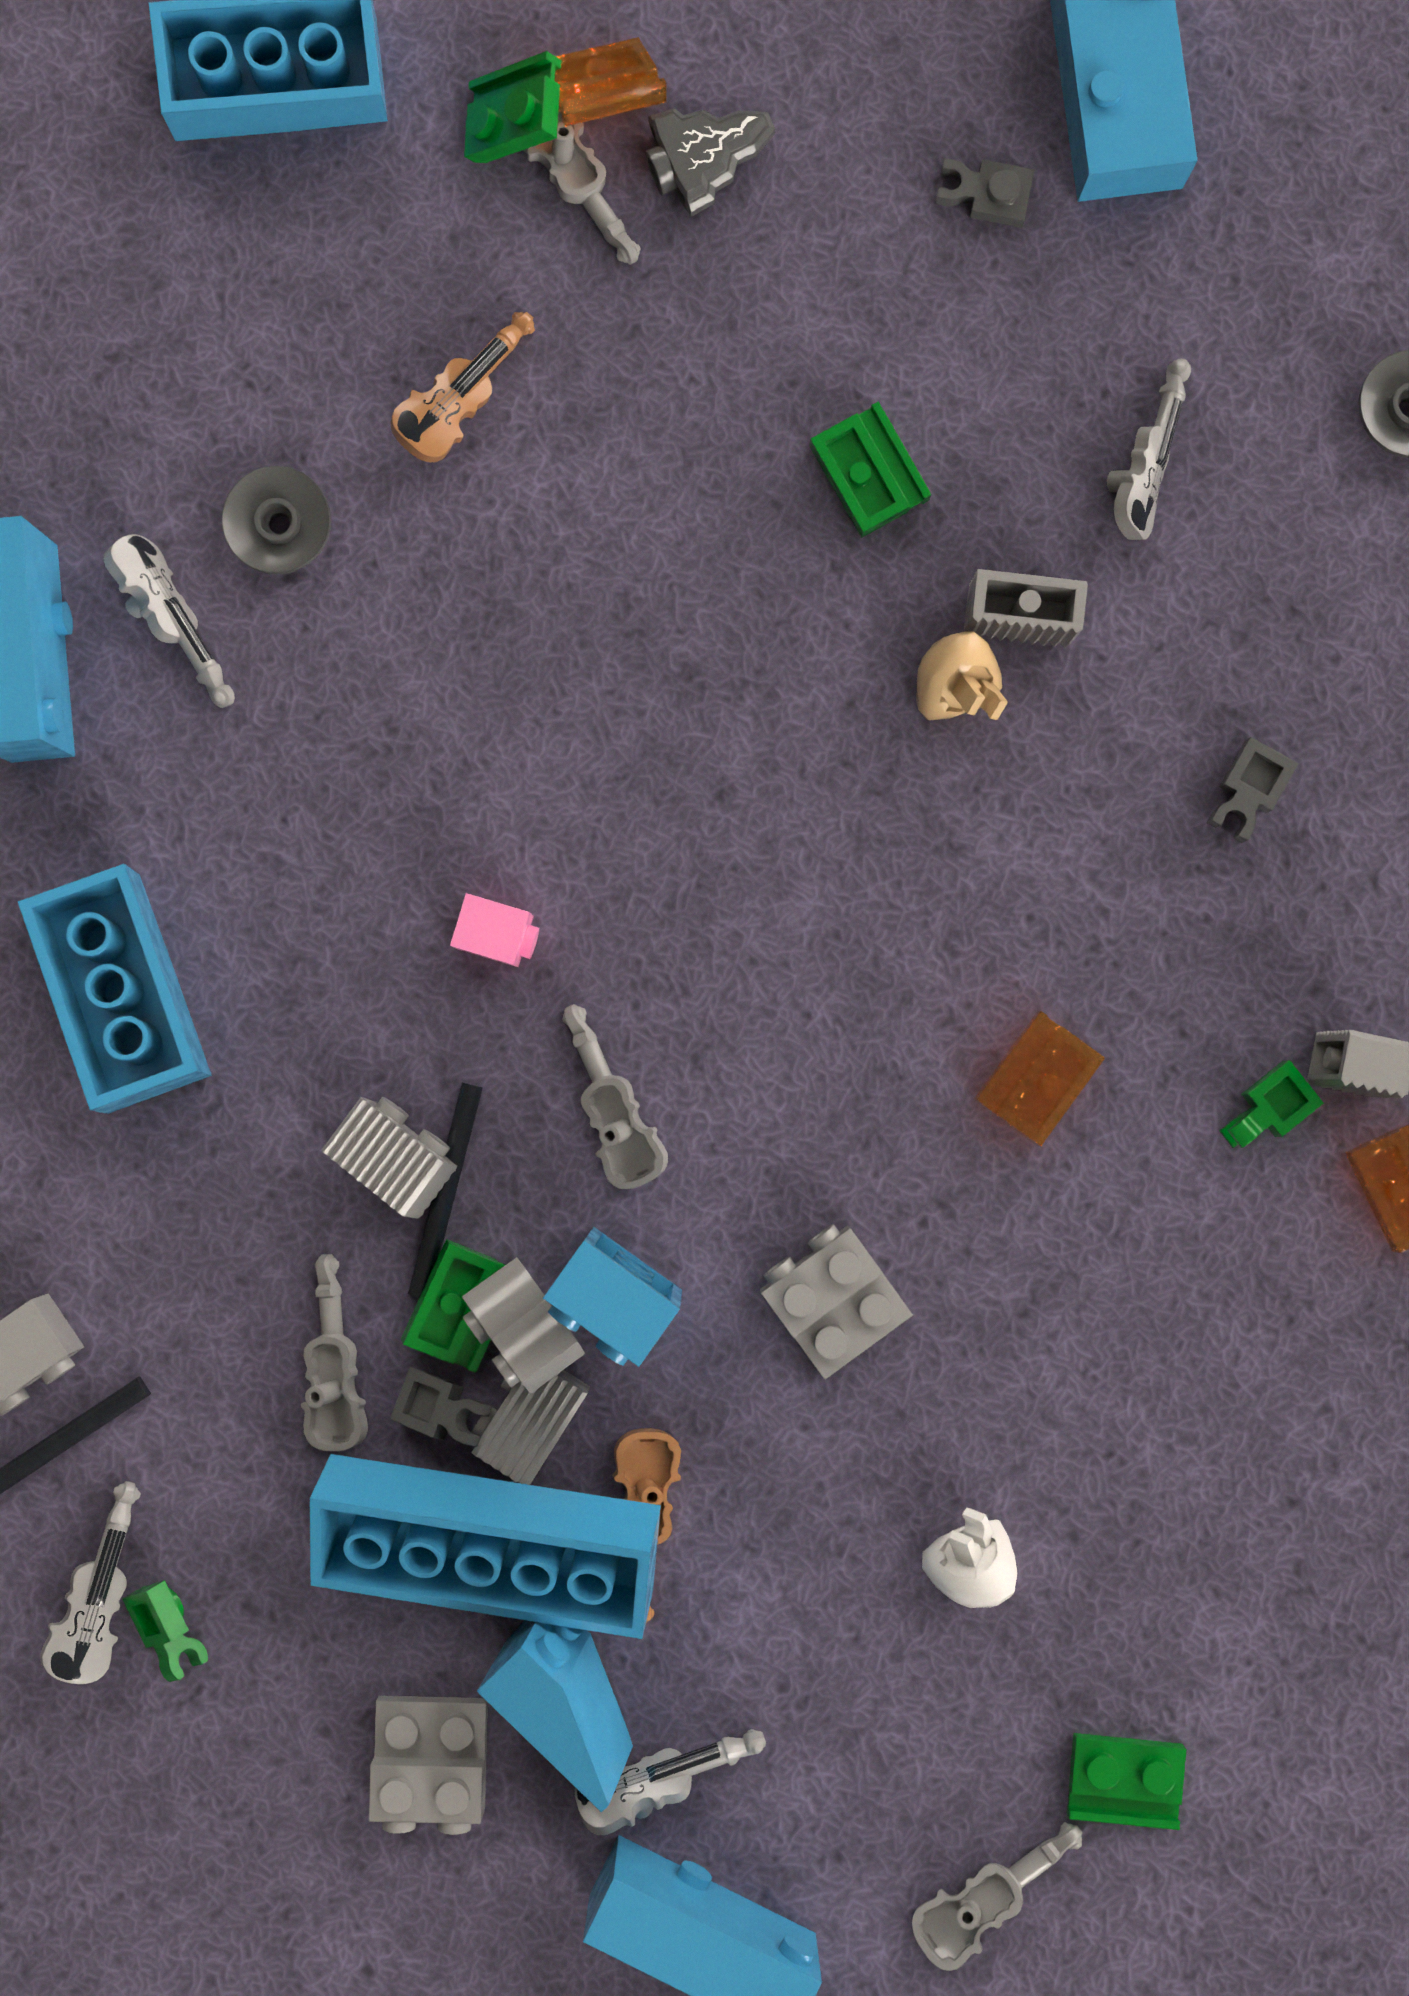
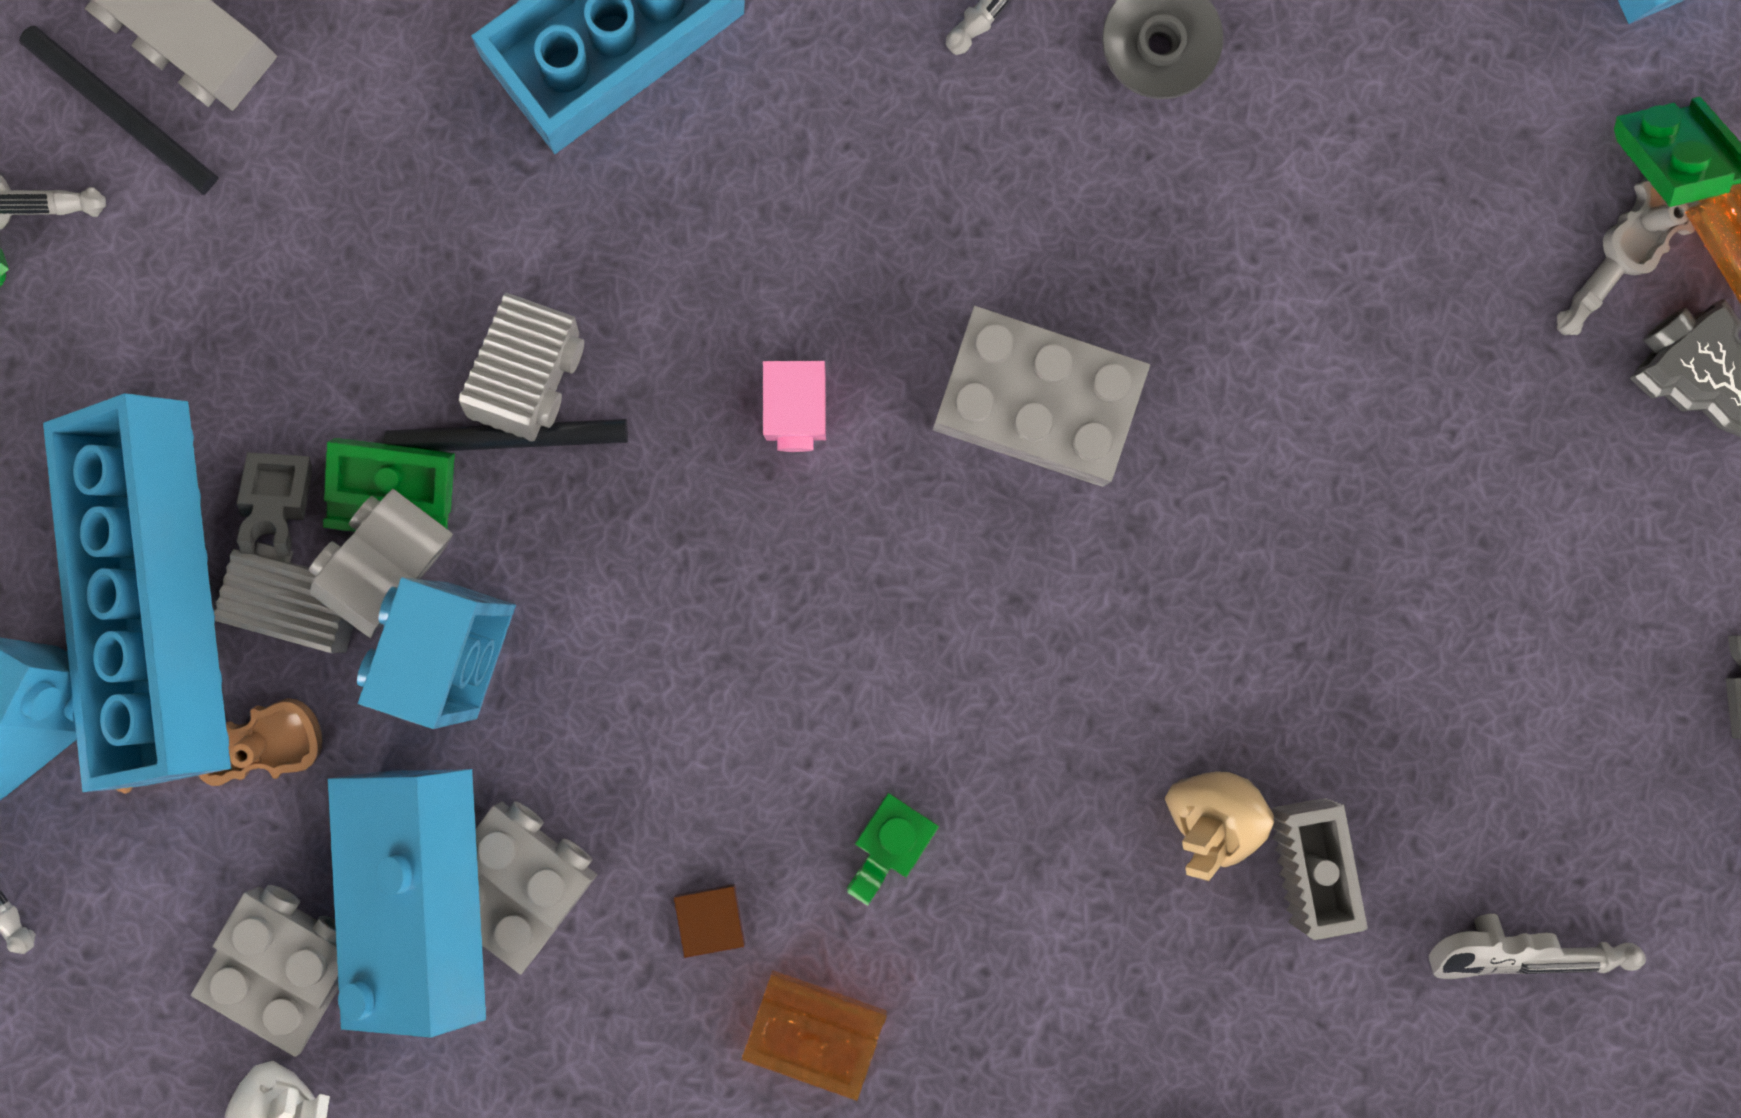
camera: 70 degrees right, 0 degrees up
(332, 1408) = (241, 389): light grey piece -> none
(430, 420) = (1319, 167): medium nougat piece -> none
(553, 718) = (1041, 397): none -> light grey brick
(629, 1148) = (608, 617): light grey piece -> none
(819, 1389) = (406, 902): none -> dark azure brick
(844, 1525) = (273, 968): none -> light grey plate
(869, 469) = (1416, 653): green plate -> none
(894, 961) = (894, 841): none -> green plate
(915, 1139) = (709, 920): none -> reddish brown tile

